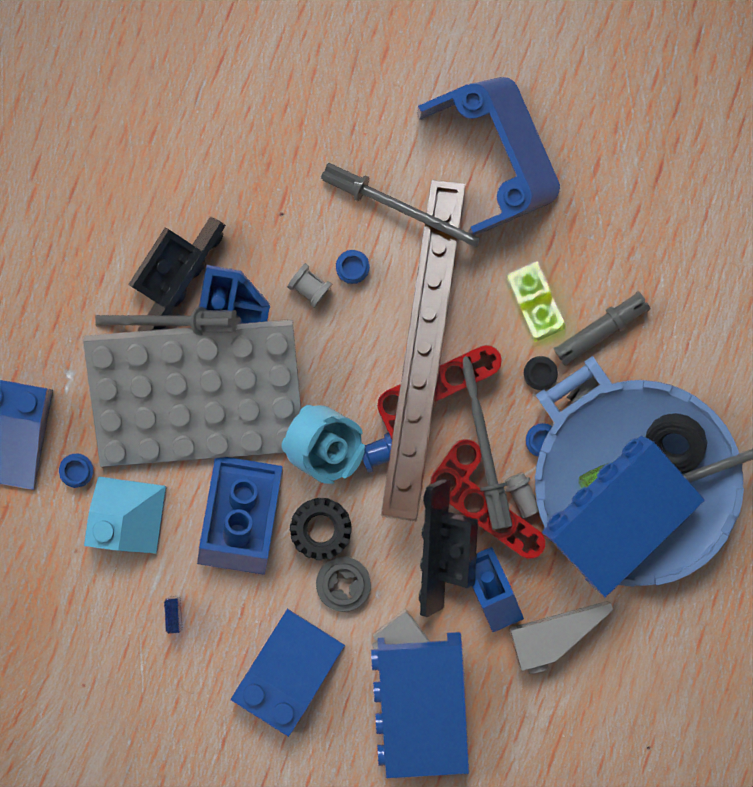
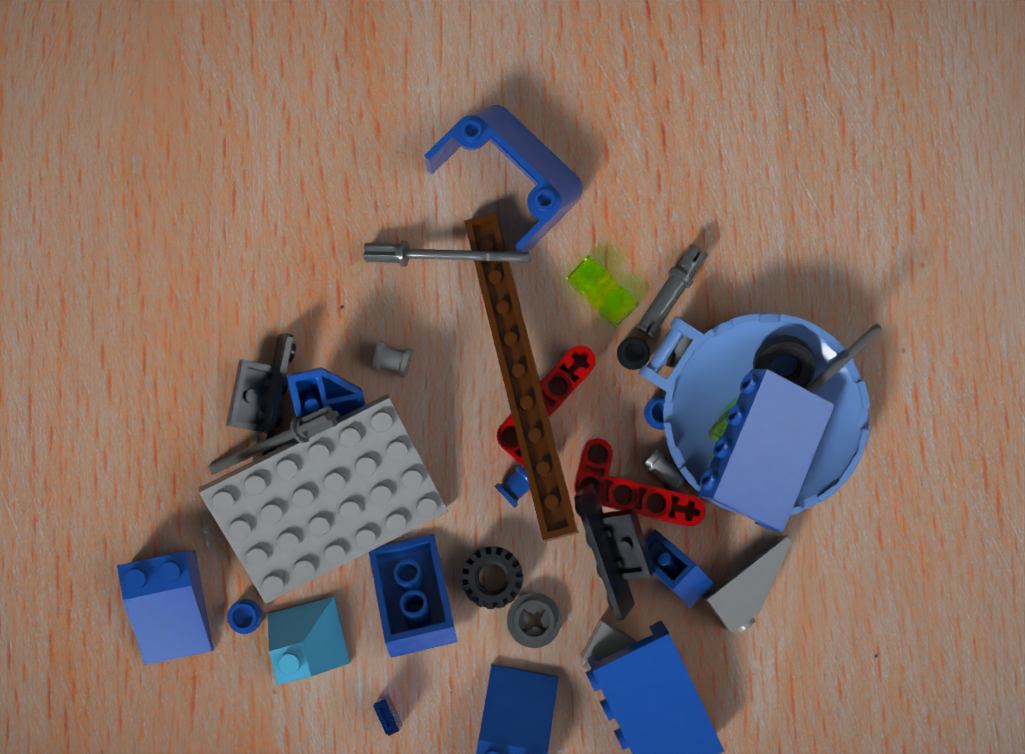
camera: 25 degrees left, 5 degrees down
(324, 443) = (463, 497): medium azure brick -> none
(352, 266) = (424, 327): blue plate -> none
(494, 492) = (638, 477): dark grey piece -> none

